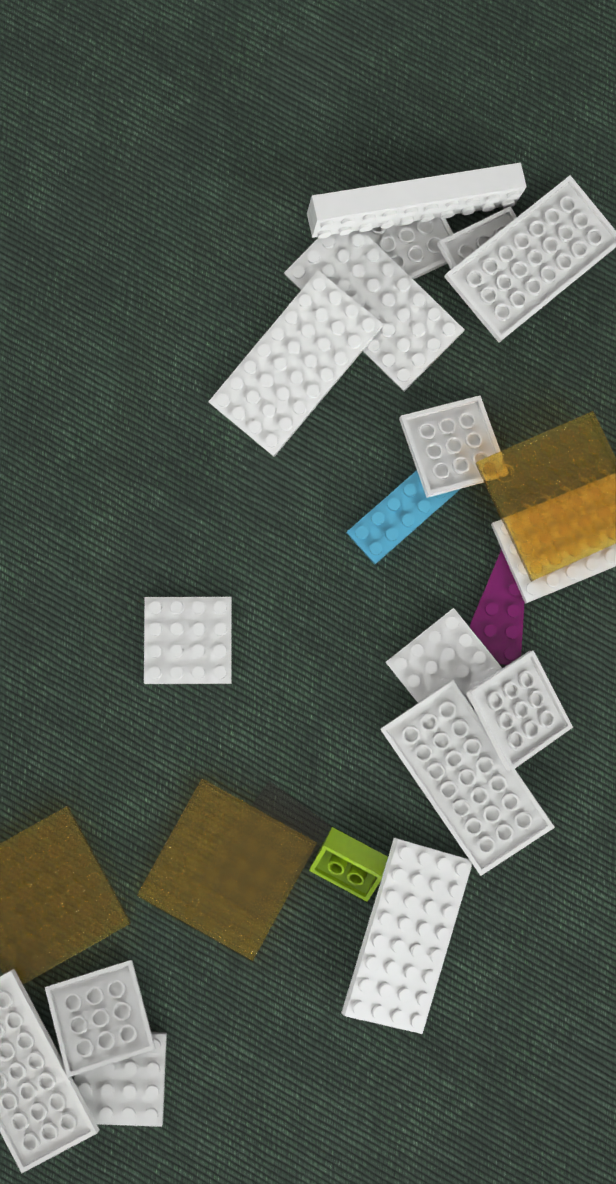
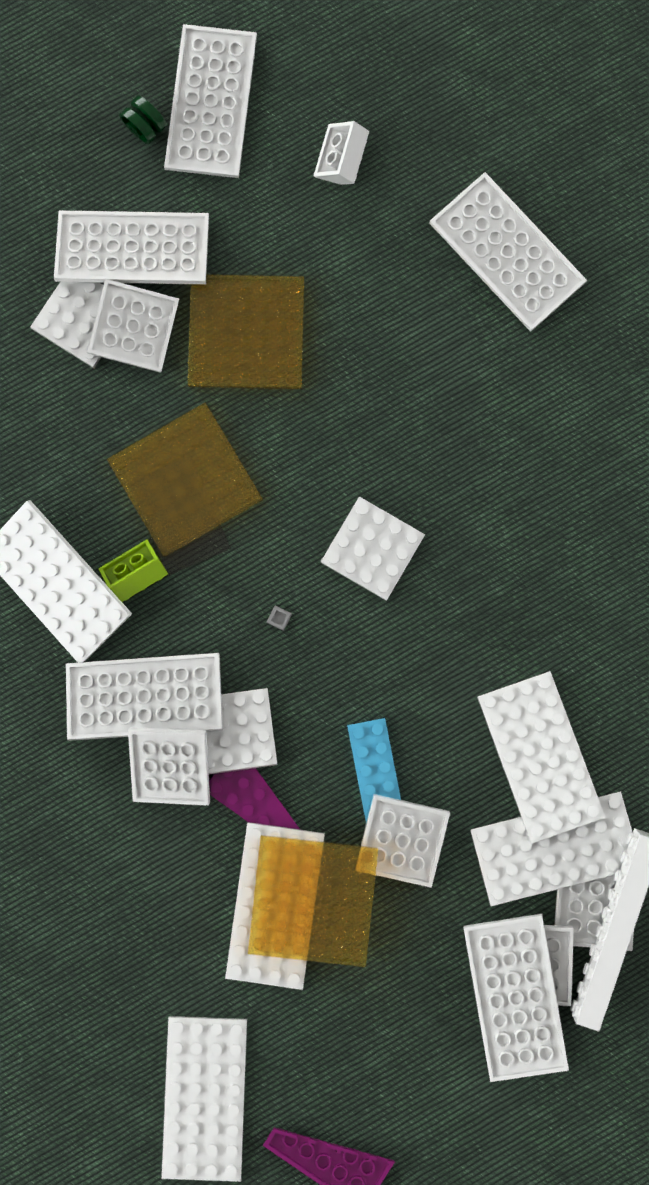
camera: 125 degrees right, 0 degrees up
(310, 691) = (279, 618): none -> light grey tile

